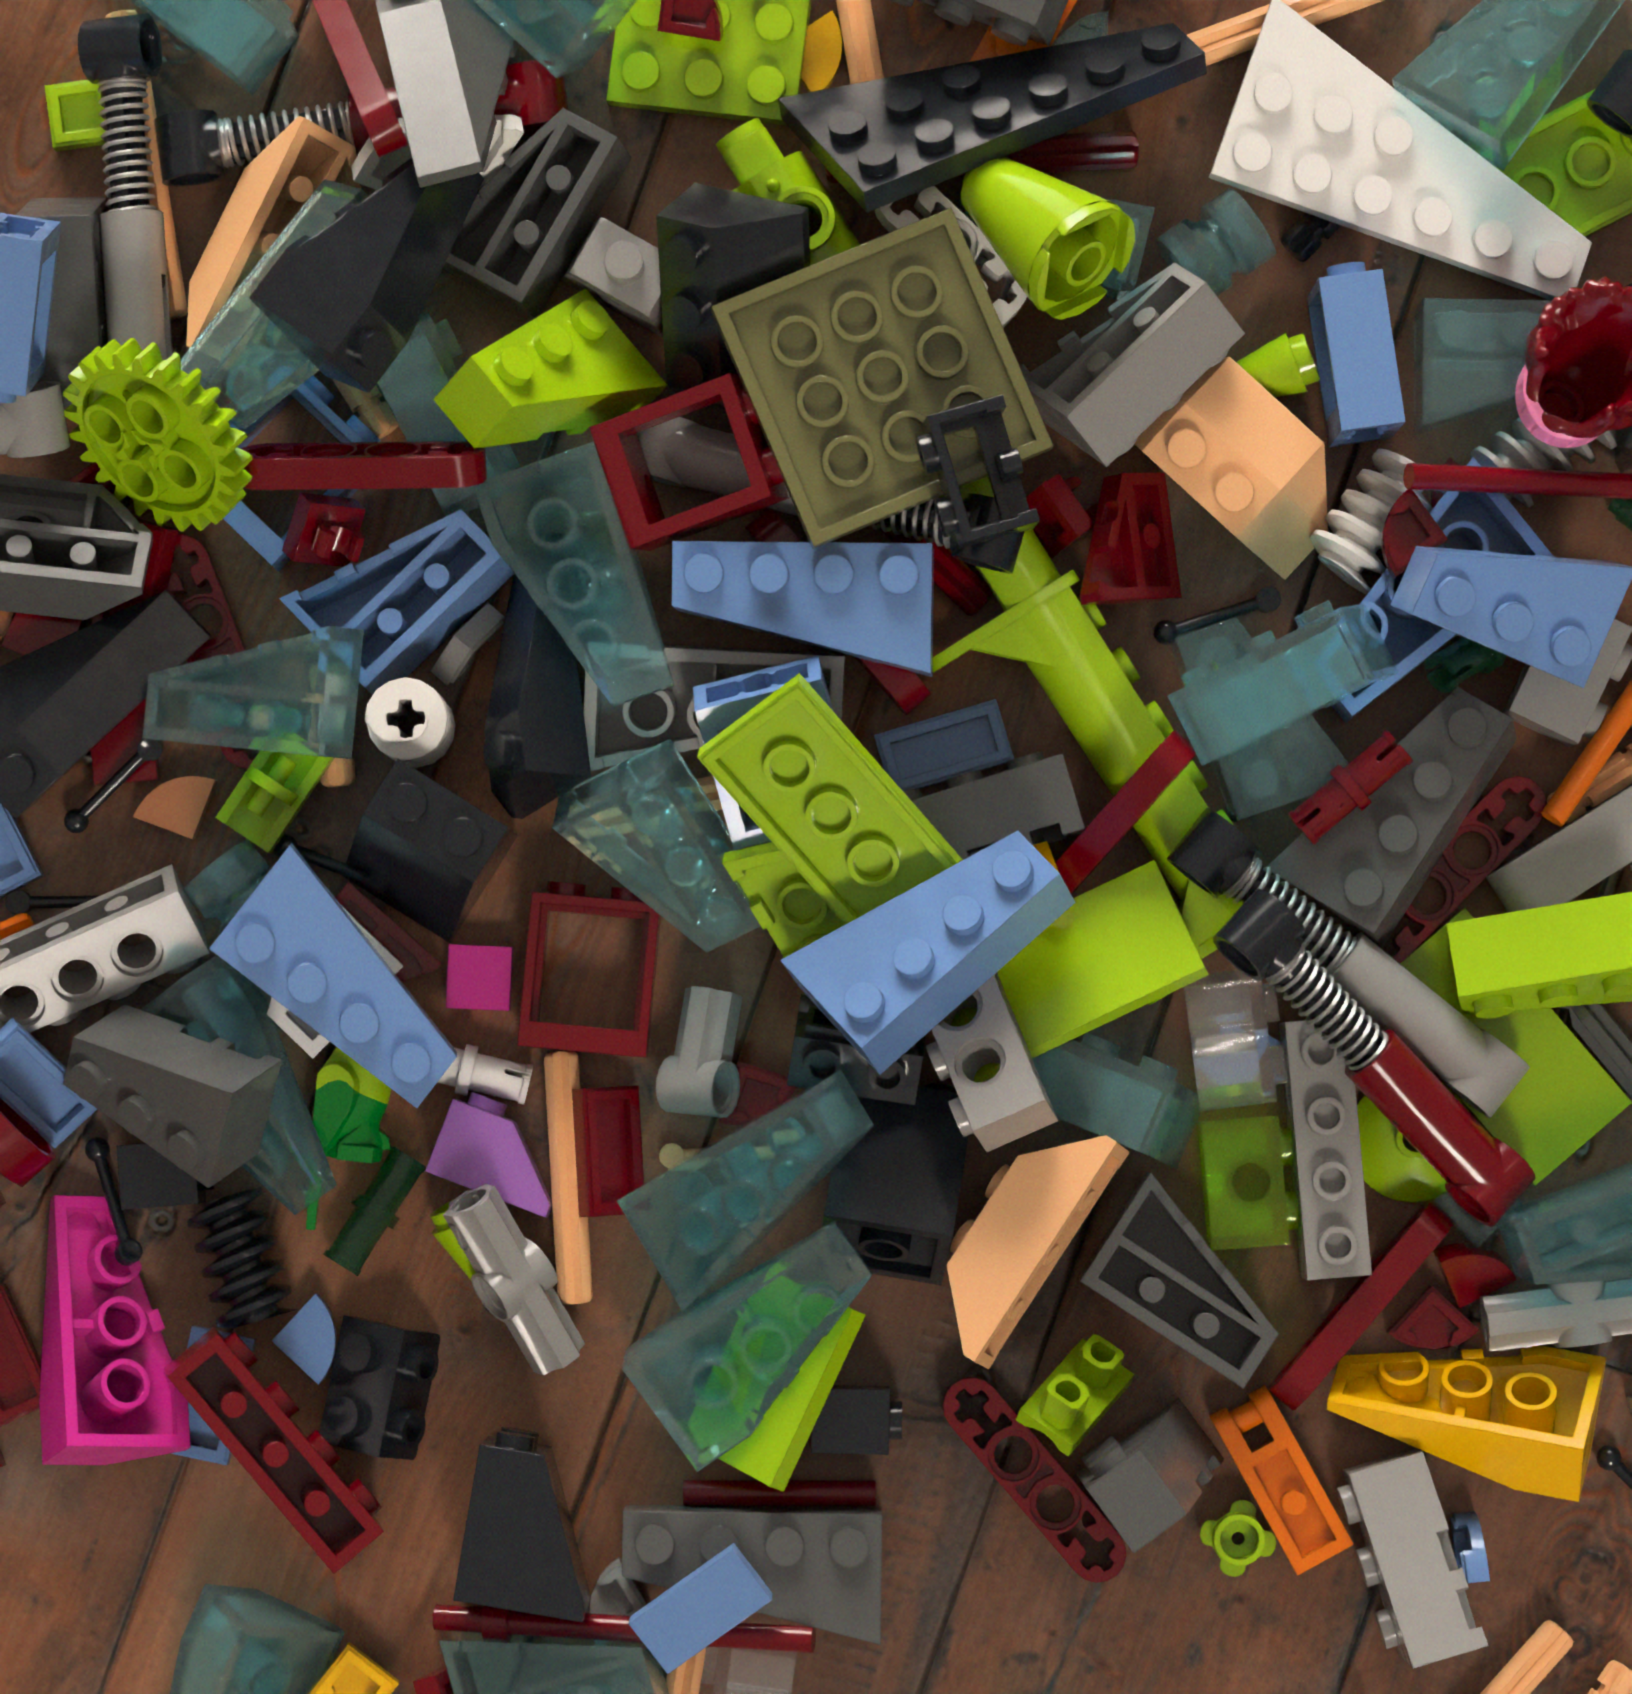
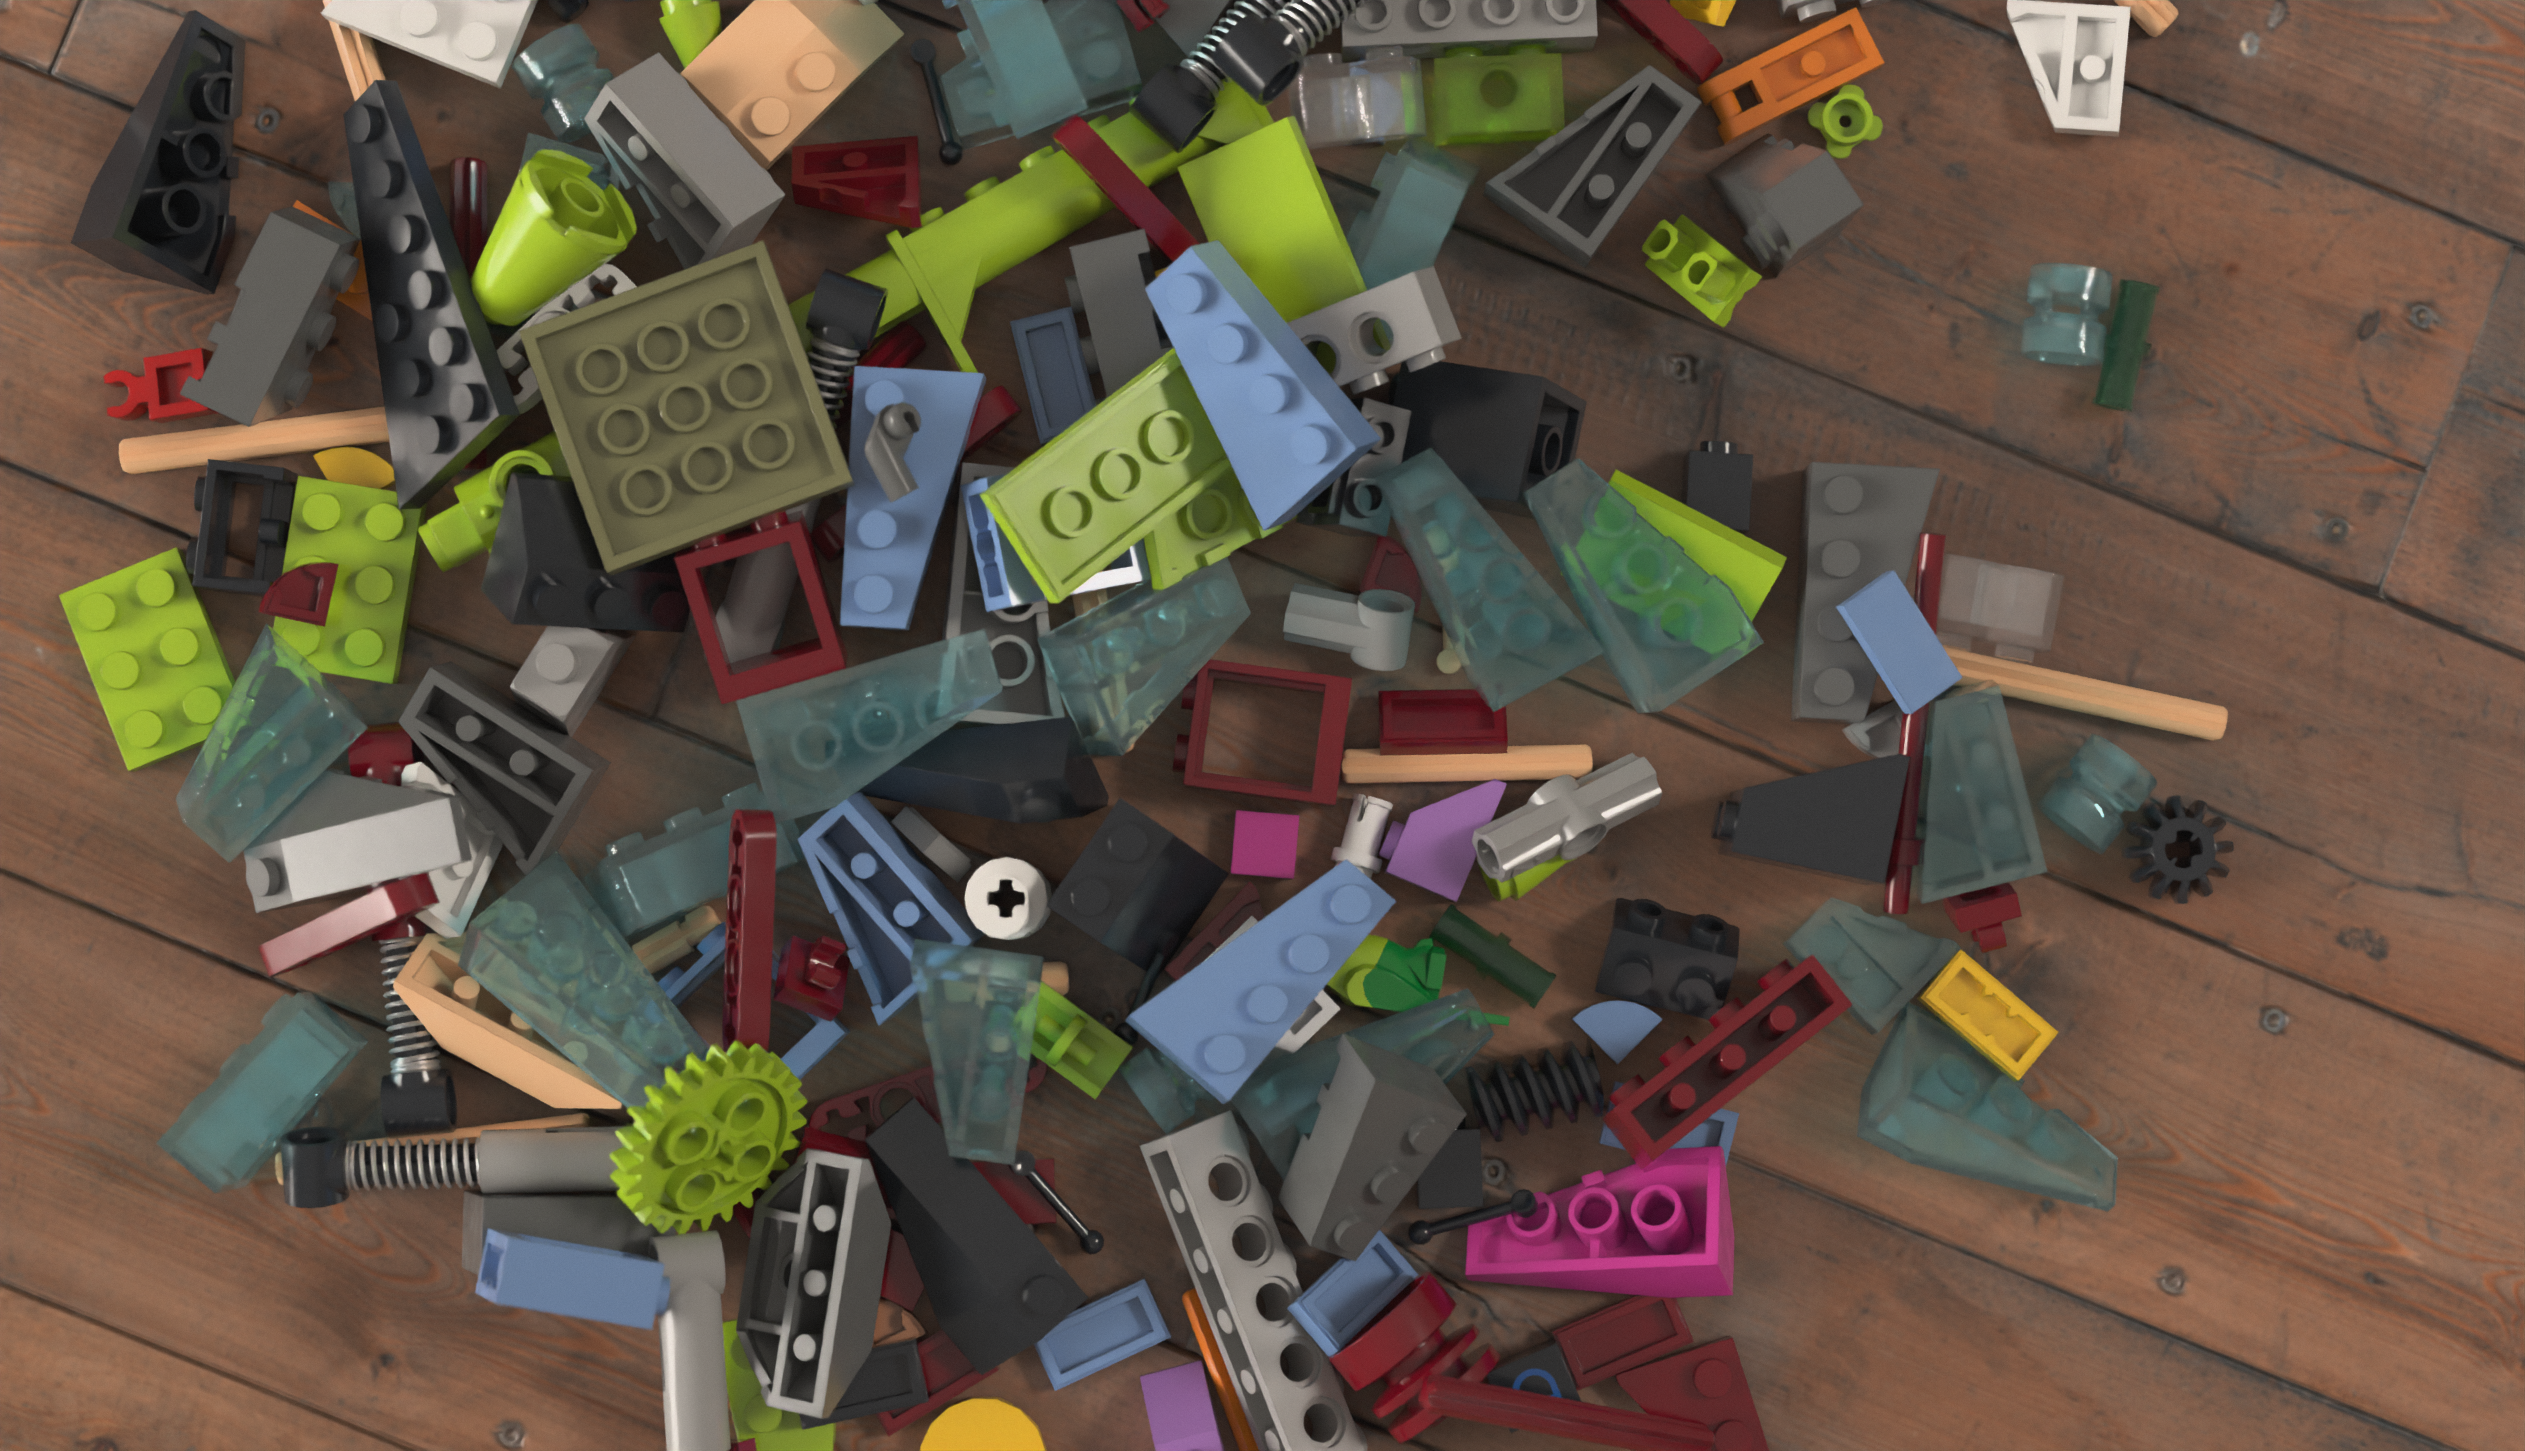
camera: 90 degrees left, 0 degrees up
(21, 901) = (1170, 1301): black hinge -> none
(74, 115) = (379, 1217): lime tile -> none
(178, 805) = (1080, 1139): nougat tile -> none
(367, 276) = (563, 921): black wedge -> none
(386, 1591) = (1870, 958): none -> clear light blue wing
(550, 377) = (669, 744): lime wedge -> none
(795, 1494) = (1785, 587): dark red bar -> none
(850, 580) = (888, 445): none -> dark grey arm
(1001, 464) = (779, 291): black window -> none
(1021, 1236) = (1544, 311): light nougat wedge -> none
(1029, 1482) = (1776, 313): dark red beam -> none
(1060, 514) = (829, 247): dark red tile -> none

